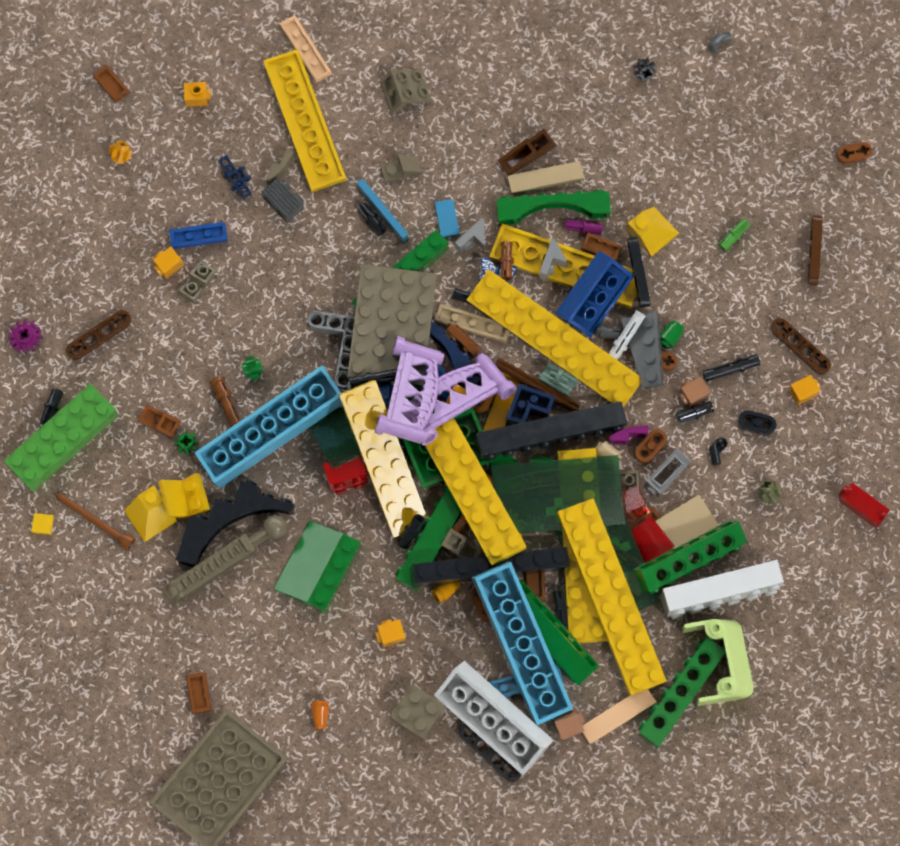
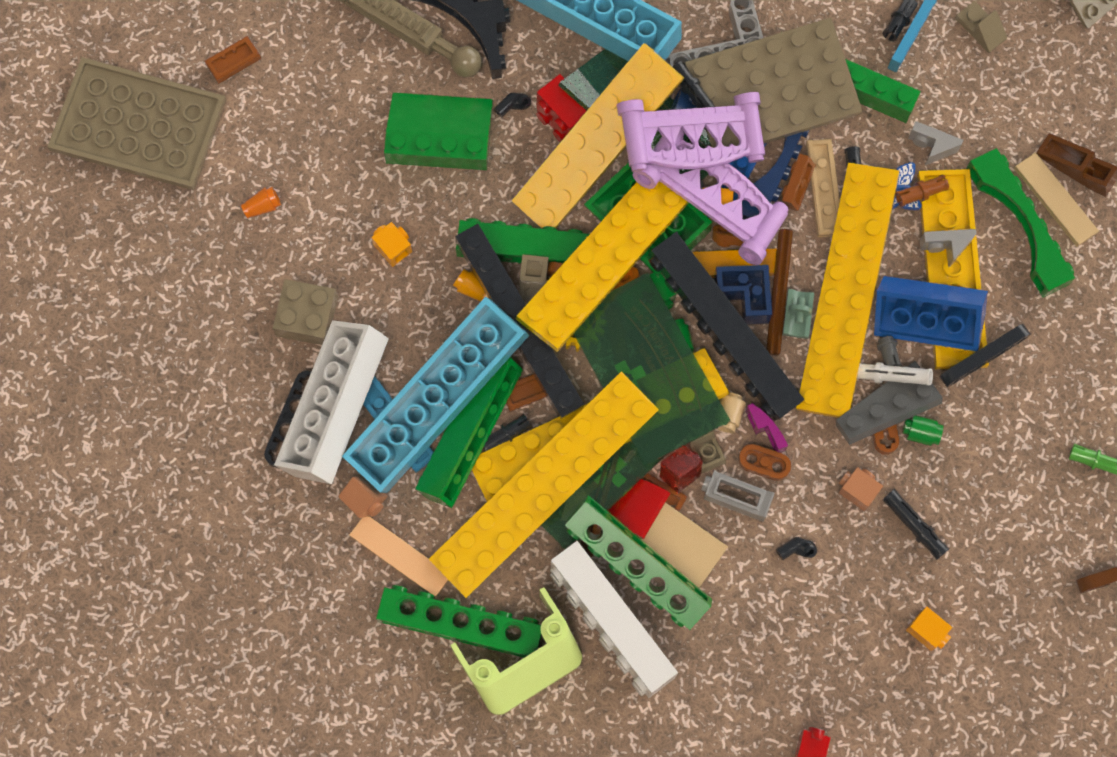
camera: 65 degrees right, 0 degrees up
(318, 506) = (513, 101): none -> black arm
(411, 531) = (526, 214): black pin -> none
(447, 218) = (944, 105): dark azure tile -> none
(583, 226) = (1014, 270): magenta axle -> none
(594, 243) = (998, 301): dark orange plate -> none
(651, 230) = (1051, 354): yellow slope -> none
(695, 412) = (834, 500): black axle -> none
(757, 421) = (857, 585): black plate -> none
(770, 492) = (771, 635): olive gear -> none
(802, 344) = (990, 604): reddish brown beam -> none

